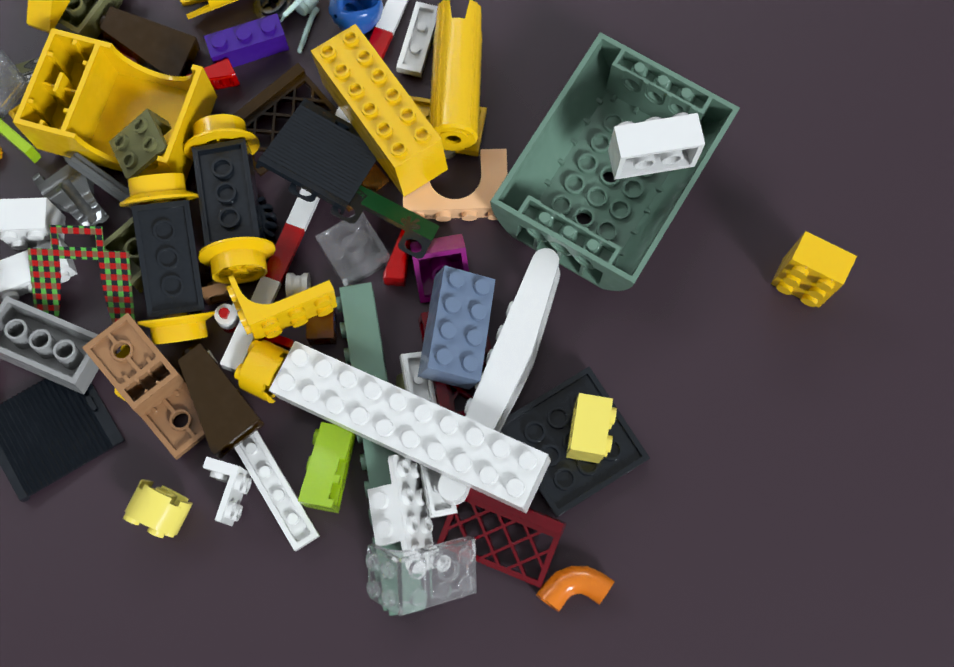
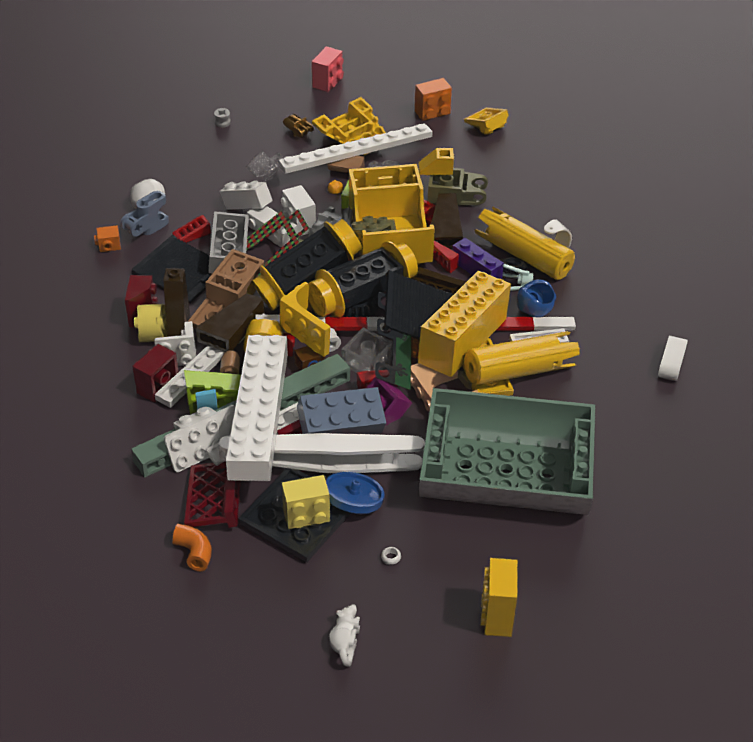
camera: 65 degrees right, 30 degrees down
(101, 508) = (139, 292): none -> dark red slope
(158, 466) = (176, 301): none -> dark brown slope
(261, 537) = (154, 371): none -> dark red brick
(283, 430) = (230, 363): none -> medium nougat brick
(352, 488) = (206, 399): none -> medium azure slope
(421, 577) = (166, 455): clear bracket -> none
(575, 363) = (355, 492): none -> blue piece
(655, 145) = (521, 446): white brick -> none
(676, 351) = (391, 561): none -> white piece
(776, 462) = (343, 635): none -> white animal

